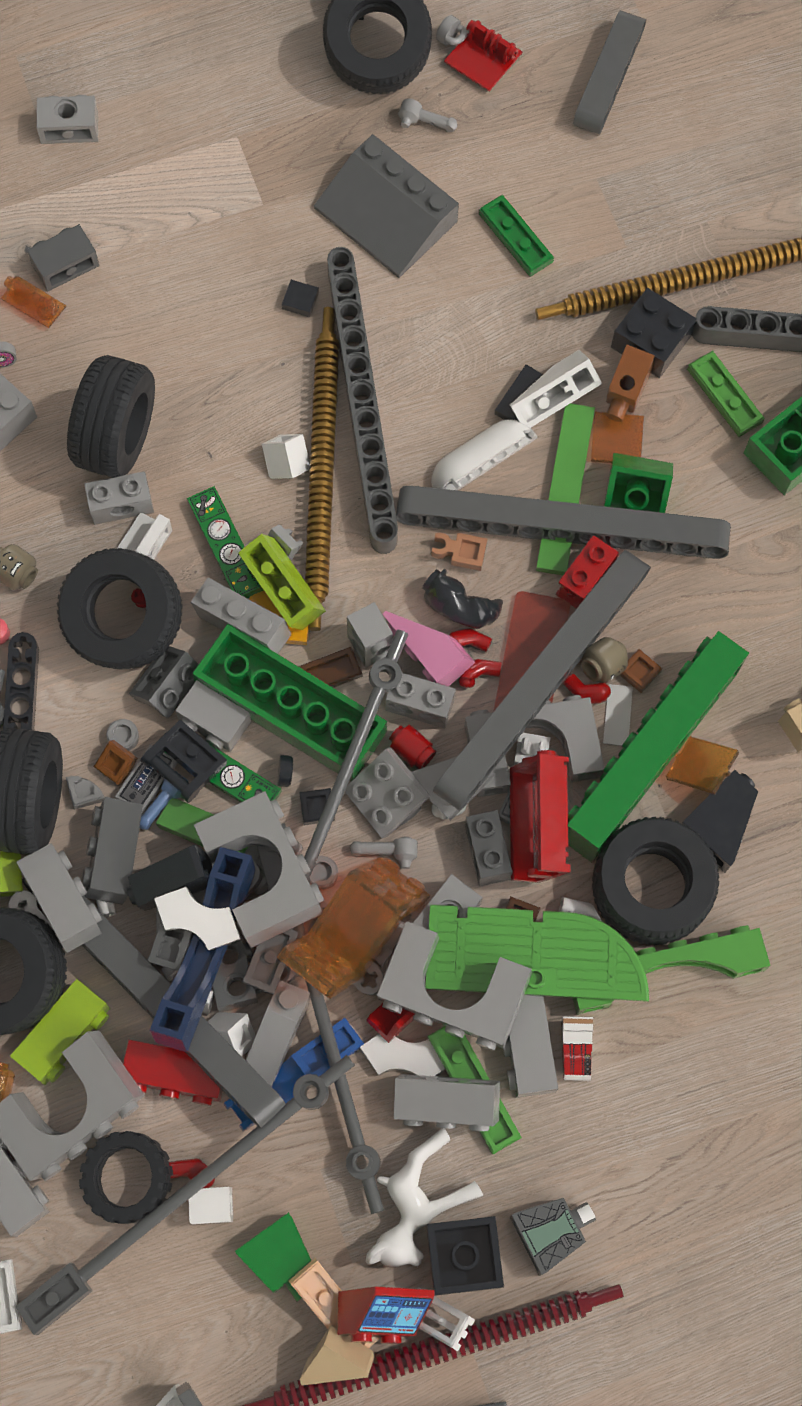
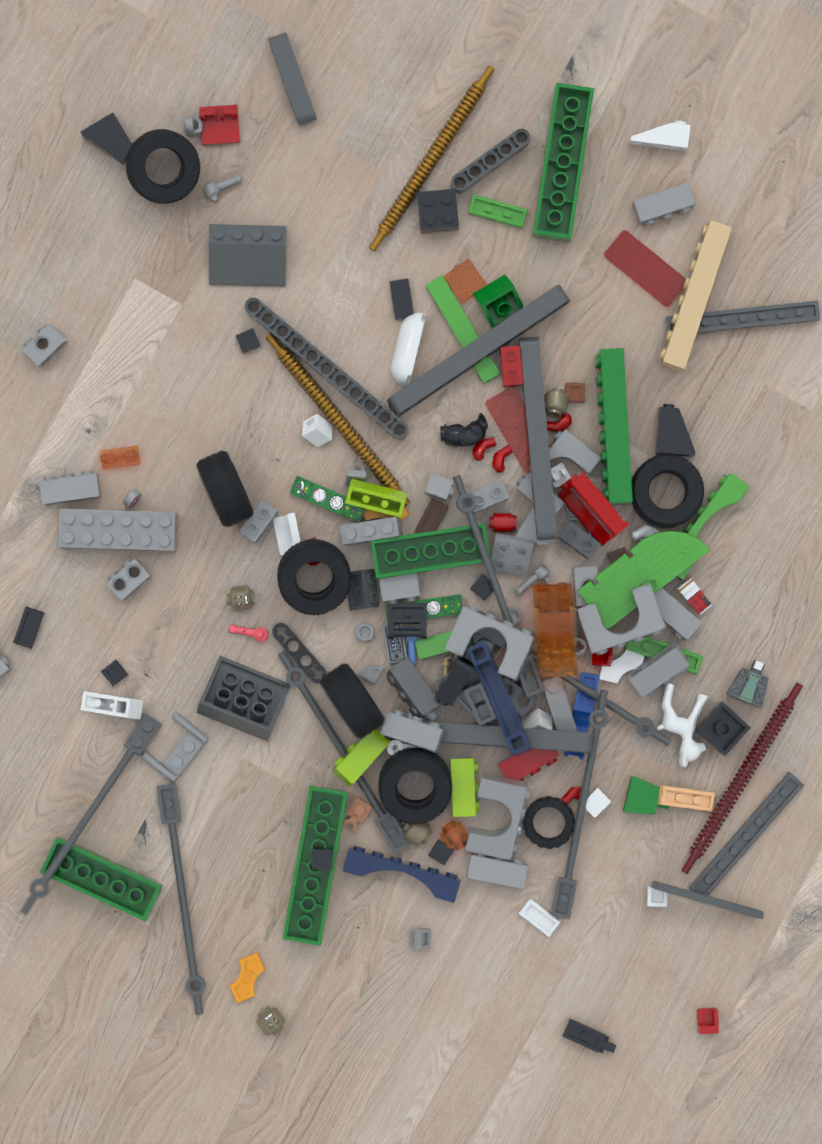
camera: 40 degrees left, 15 degrees up
(63, 257) = (113, 421): dark grey brick -> none
(115, 762) = (374, 647): dark orange tile -> none
(212, 925) = (493, 687): white tile -> none
(285, 771) = (455, 584): black tile -> none
(337, 1360) = (705, 817): tan slope -> none
(382, 1313) = (708, 783): slope -> none
(438, 652) = (474, 467): bright pink slope -> none
(458, 1330) = (746, 761): white tile -> none
(466, 551) = (444, 404): nougat plate -> none
(516, 235) = (323, 213): green tile -> none
(556, 389) = (417, 283): white slope -> none
(618, 715) = (582, 422): white sticker -> none
(632, 376) = (445, 243): dark orange torso -> none
(702, 765) = (643, 416): clear orange piece -> none

